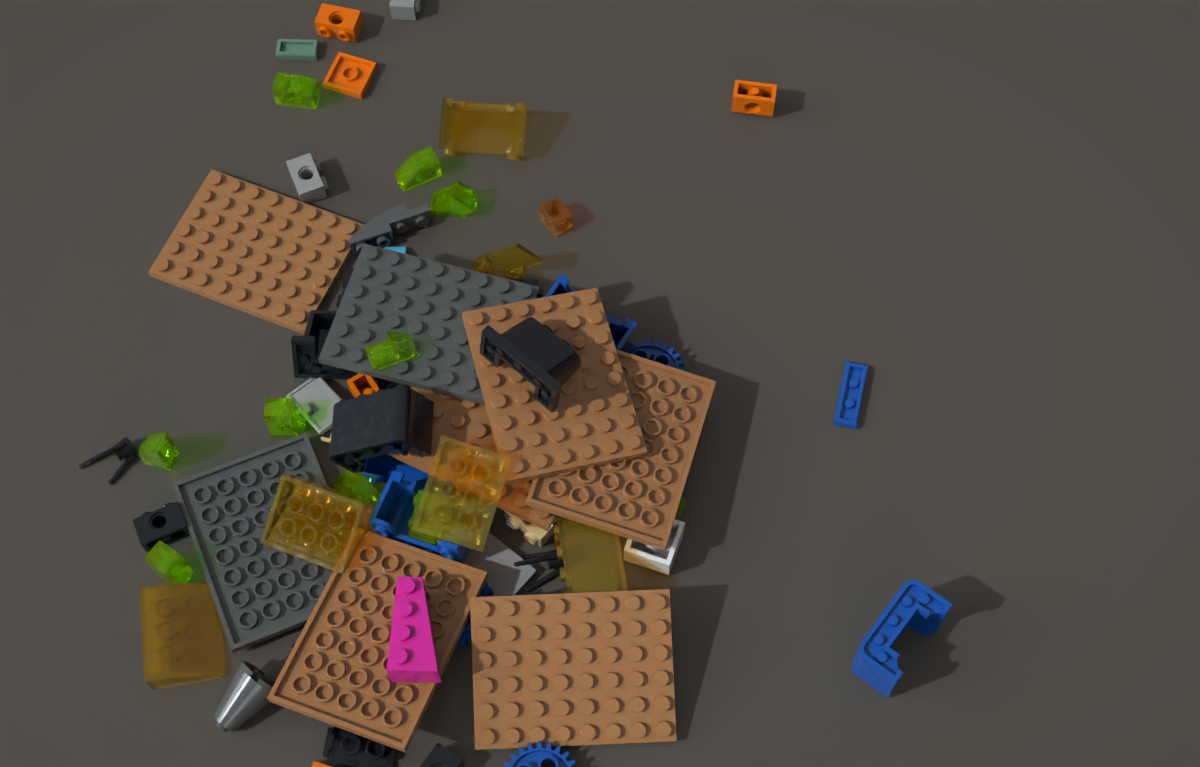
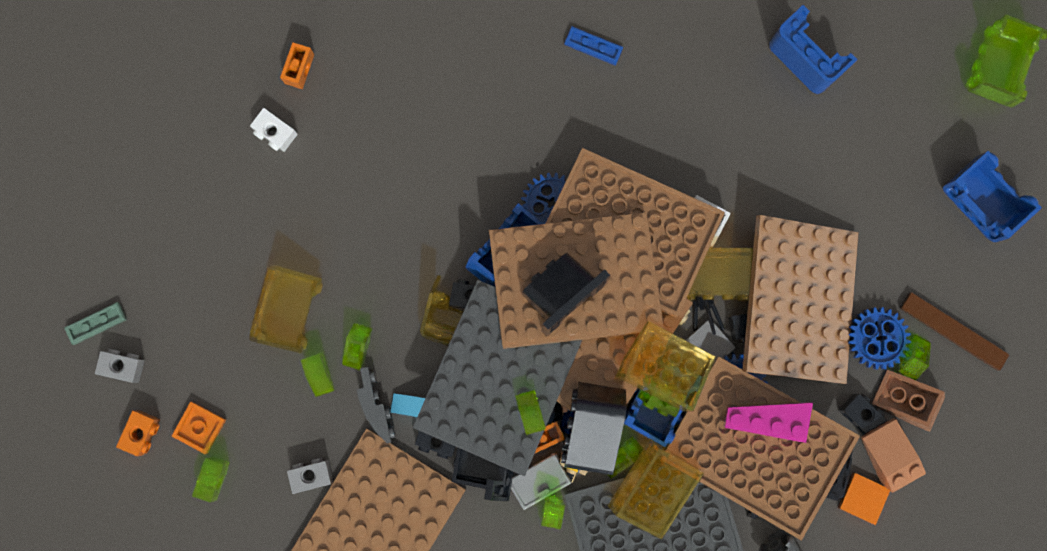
camera: 90 degrees left, 20 degrees up
(297, 49) = (159, 475): sand green tile -> none
(557, 224) = (389, 250): clear orange brick -> none
(679, 89) = (267, 121): none -> white brick

